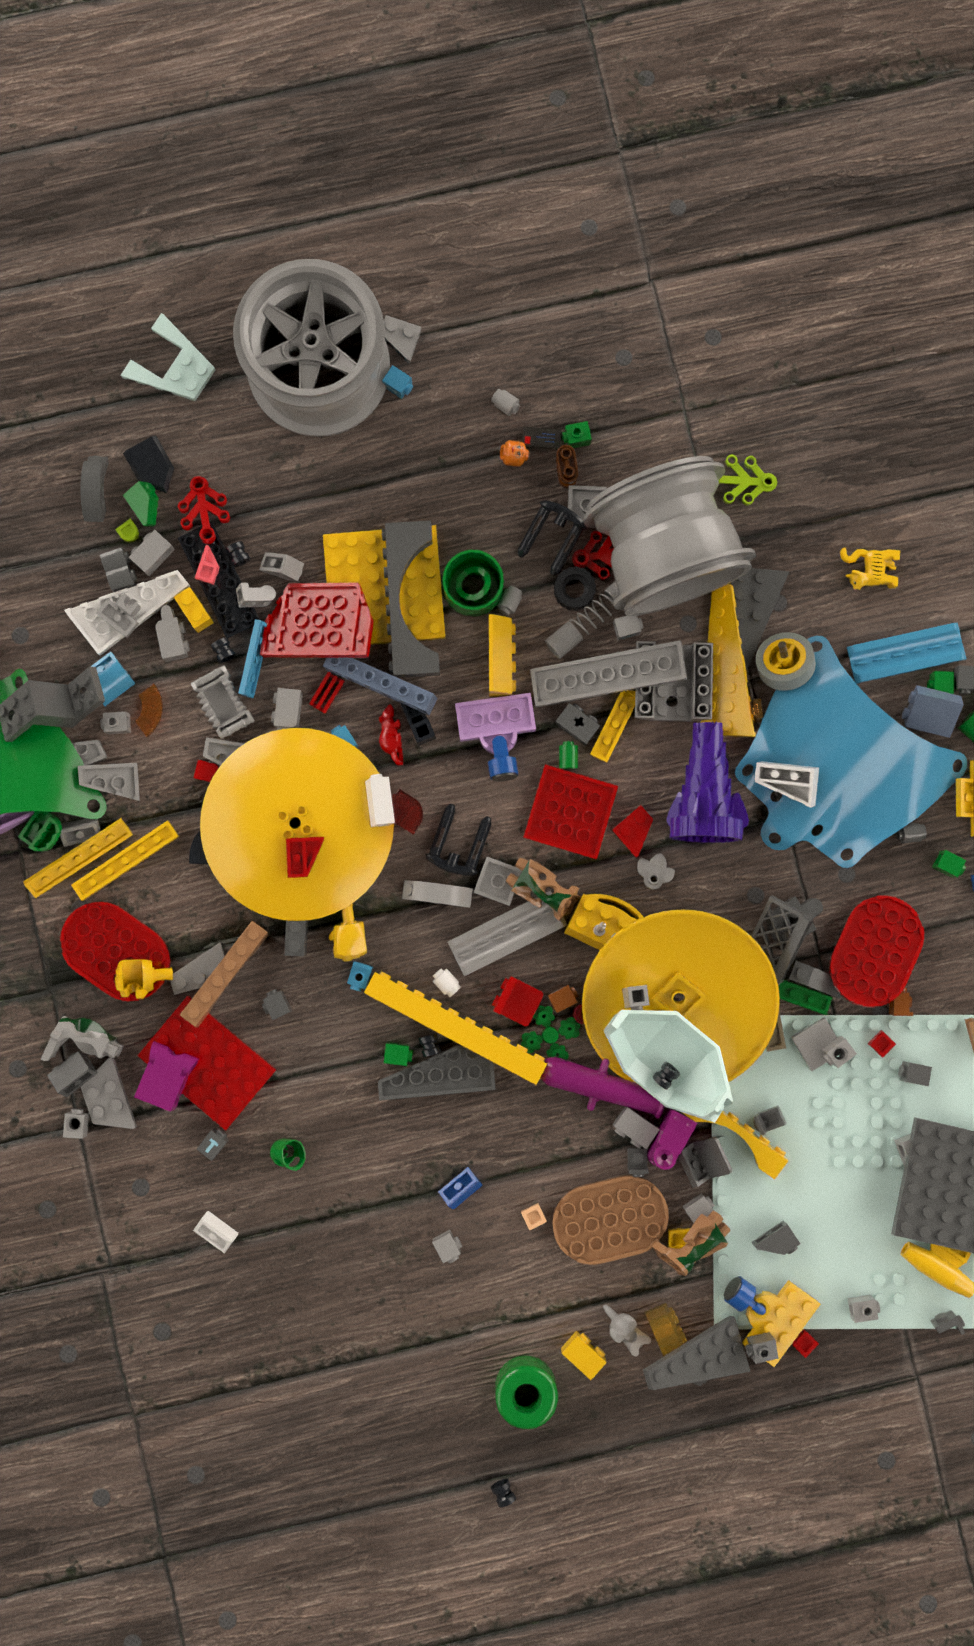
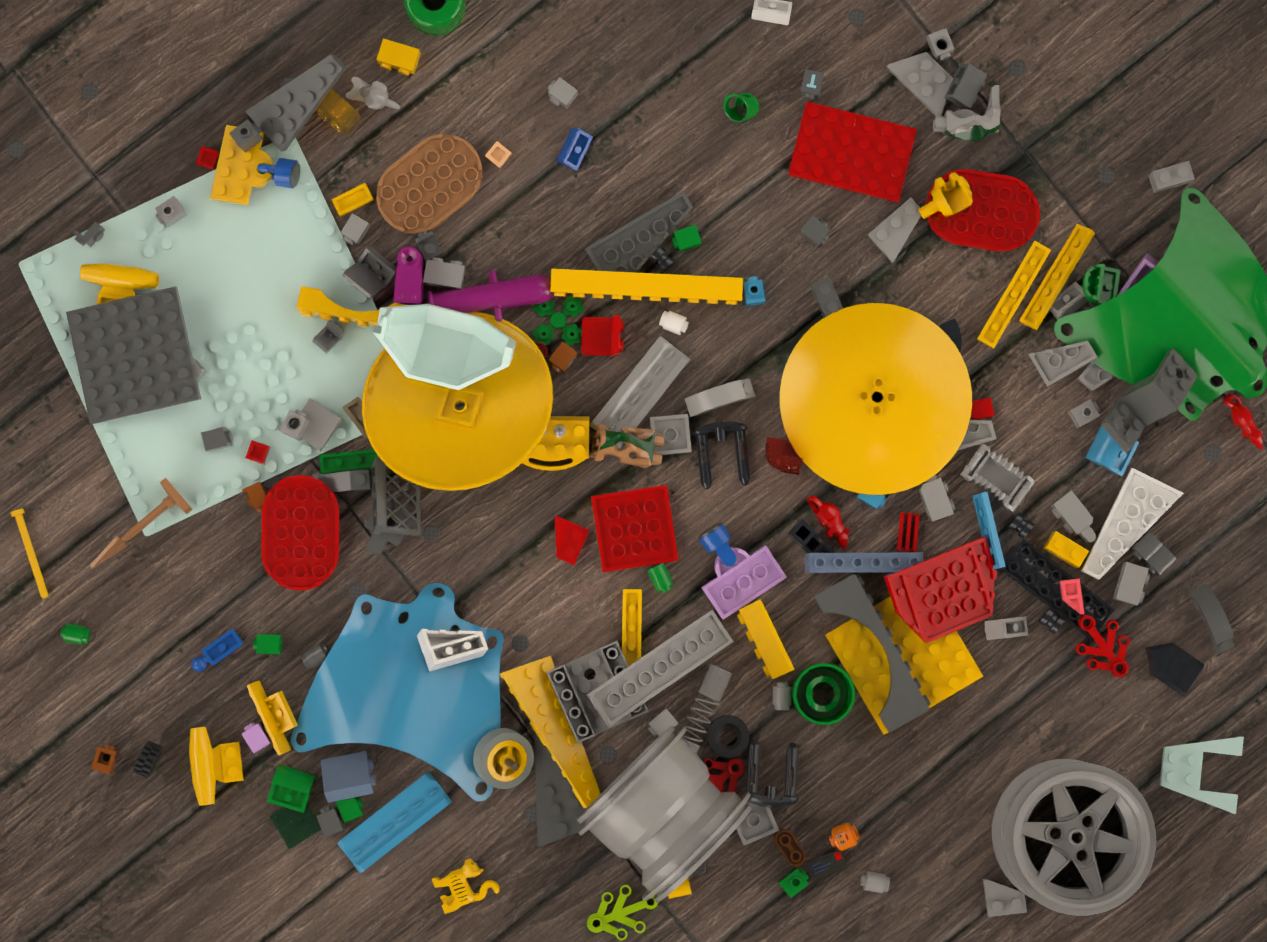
camera: 160 degrees right, 0 degrees up
(120, 615) = (1129, 511): light grey plate -> none
(128, 531) = (1162, 594): lime tile -> none
(143, 502) = (1161, 626): green slope -> none
(151, 710) = (1059, 441): clear orange tile -> none
(165, 1077) = (882, 121): magenta piece -> none
(223, 974) = (874, 235): medium nougat arch -> none
(254, 596) = (1015, 587): light grey leg -> none
(302, 855) = (856, 370): red wing -> none
(348, 937) = (780, 320): yellow piece -> none
(379, 801) = (811, 452): white brick -> none
(398, 382) = (984, 852): dark azure brick -> none
(567, 723) = (657, 604): dark grey brick -> none
(635, 997) = (500, 384): light grey brick -> none
(655, 868) = (532, 514): light grey plate -> none
(666, 1075) = (440, 330): black wheel -> none
(702, 1240) = (341, 204): medium nougat hips -> none
(705, 806) = (517, 589): dark purple cone -> none
(757, 710) = (508, 700): clear orange tile -> none
(777, 1240) = (273, 235): dark grey slope -> none

